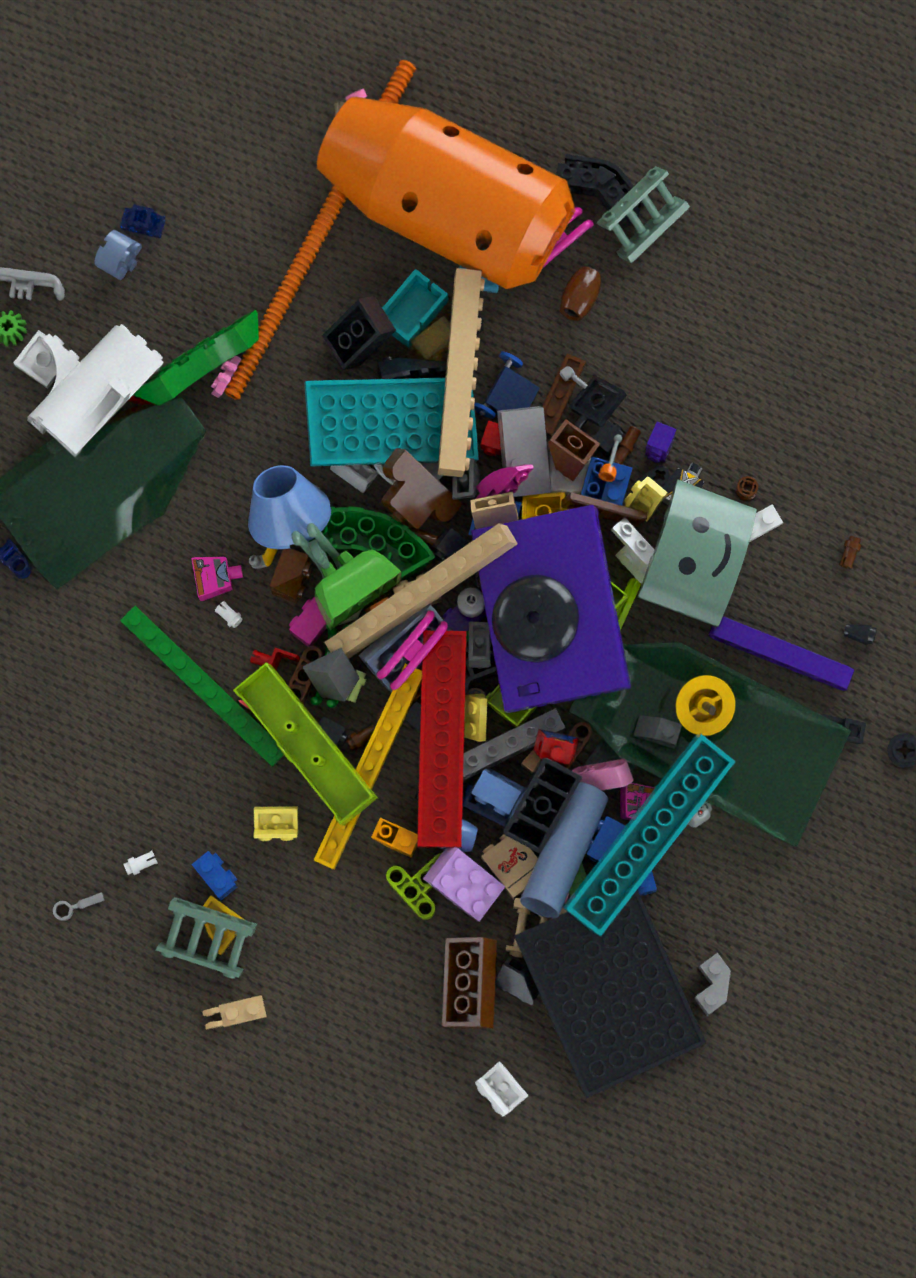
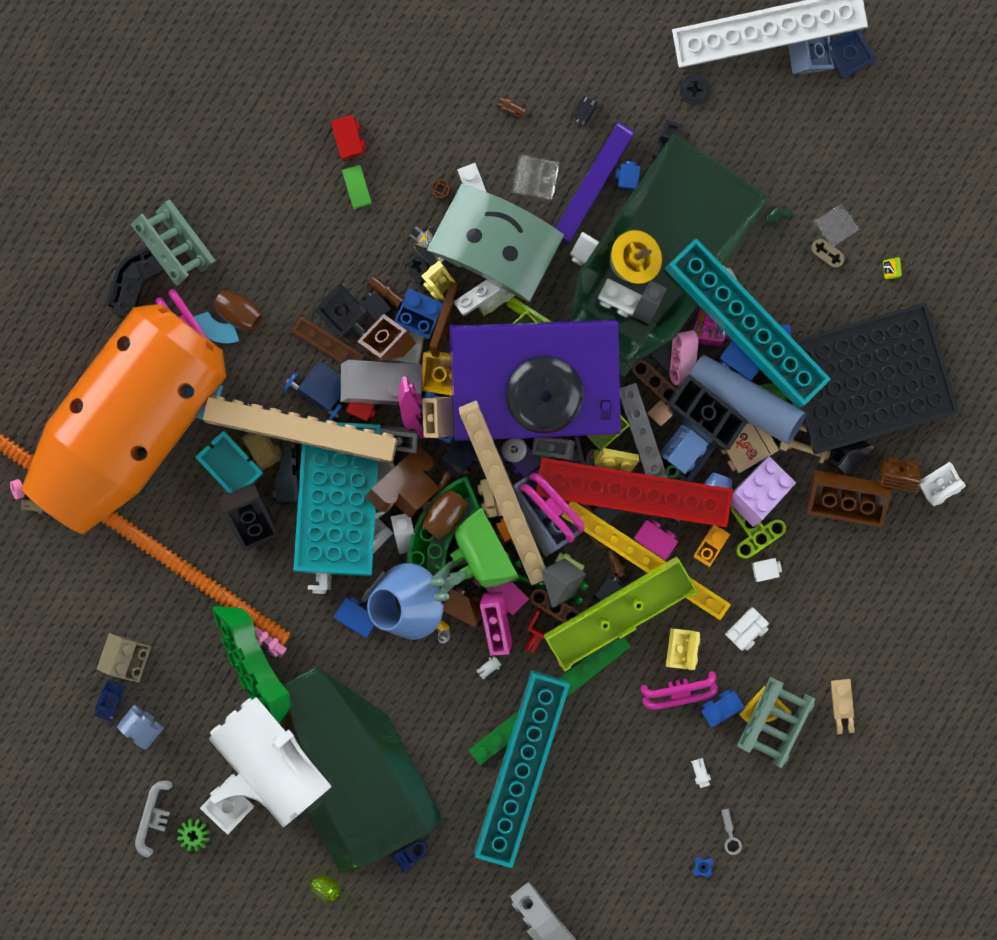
camera: 85 degrees left, 10 degrees up
(31, 885) = (704, 872): none -> blue plate
(120, 661) = (521, 769): none -> teal brick
(190, 230) = (123, 658): none -> dark tan slope
(214, 576) = (452, 676): dark pink torso -> none
(226, 827) = (680, 693): none -> dark pink piece
(265, 457) = (354, 616): none -> blue brick
(277, 612) = (496, 623): none -> dark pink brick
(296, 422) = (324, 583): none -> white bracket
(307, 892) = (747, 629): none -> white brick
(366, 498) = (403, 531): none -> white slope
(377, 904) = (766, 569): none -> white brick
(389, 537) = (445, 514): none -> reddish brown piece
(394, 776) = (655, 539): none -> dark pink brick
(468, 778) = (673, 468): none -> dark green pin
(504, 1038) = (900, 475): none -> reddish brown brick
(555, 275) = (216, 331): none -> medium azure tile
(555, 746) = (655, 394): red torso -> none
(568, 373) = (311, 332): light grey hand -> none
(608, 471) = (411, 310): orange hinge -> none
(658, 696) = (619, 298): none -> white bracket
(660, 442) = (389, 260): dark purple brick -> none
(707, 646) = (583, 248): none -> white slope
(718, 976) = (885, 287): light grey brick -> none
(735, 400) = (356, 187): none -> bright green slope
(739, 1000) = (892, 268): none -> slope
(740, 922) = (824, 257): none -> dark tan beam
(777, 590) = (535, 177): none -> clear slope
(777, 930) = (836, 225): none -> clear piece
(779, 862) = (778, 213): none -> clear green arm
(787, 383) = (347, 137): none -> red brick
(796, 688) = (628, 176): none -> blue brick

